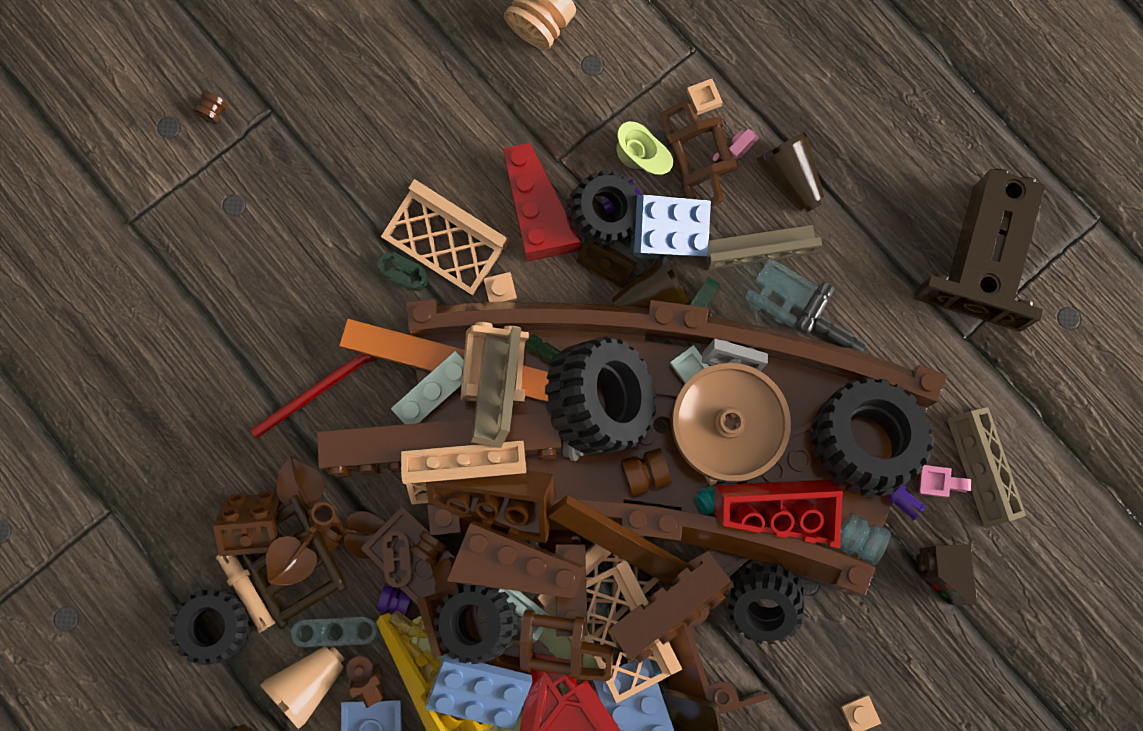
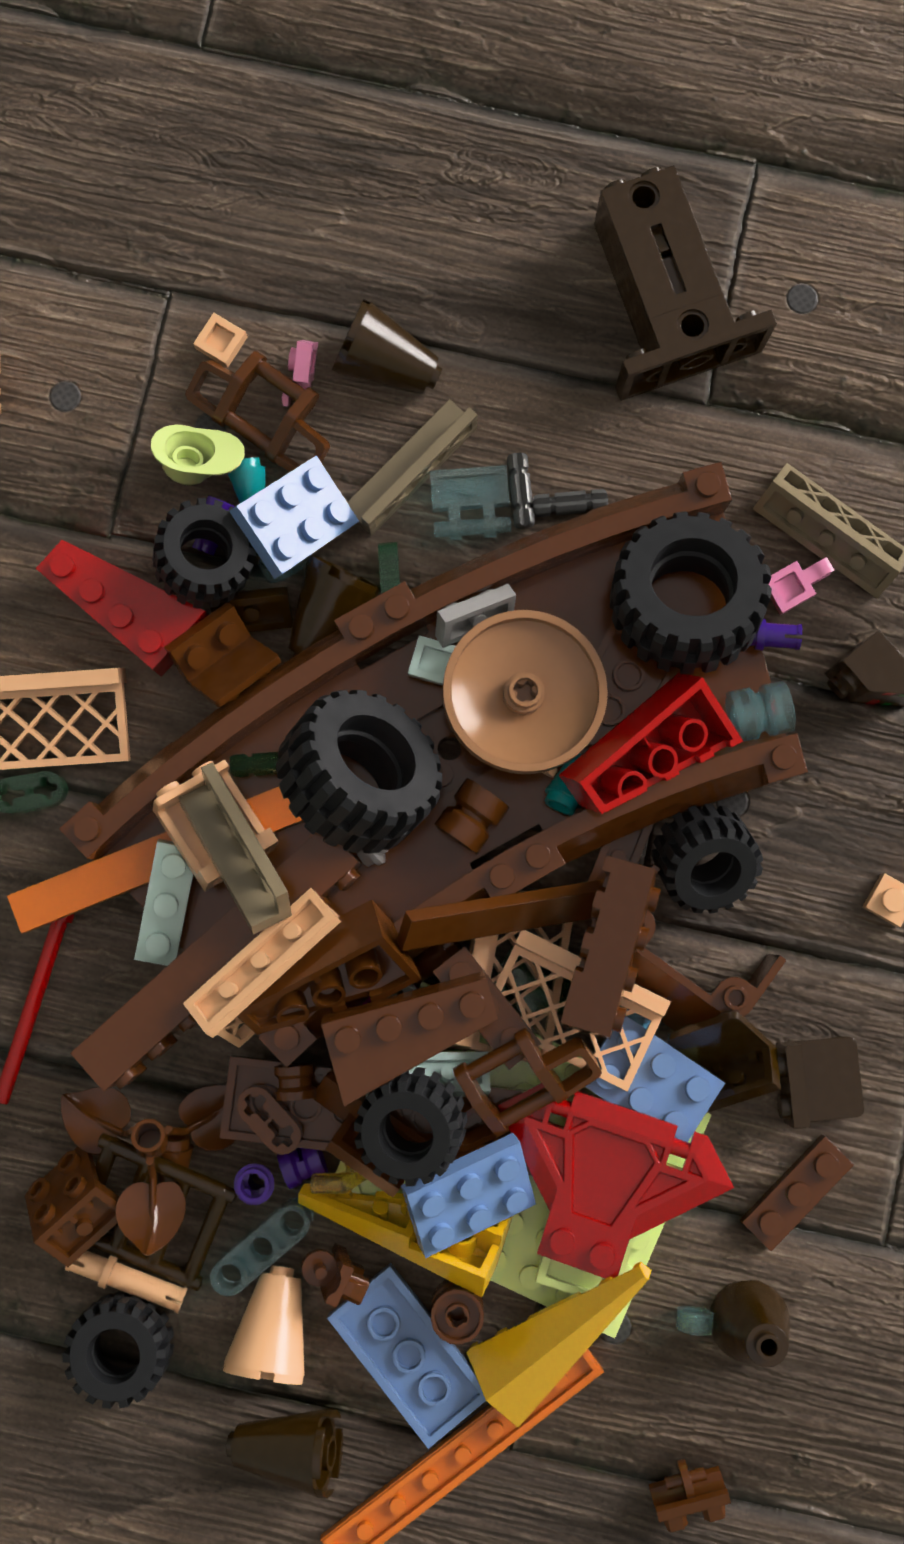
camera: 35 degrees left, 5 degrees up
(353, 587) = (248, 1190): none -> dark purple cone
(500, 288) = (155, 729): light nougat plate -> none
(570, 274) = (221, 656): none -> reddish brown bracket
(661, 185) = (248, 478): none -> teal cone

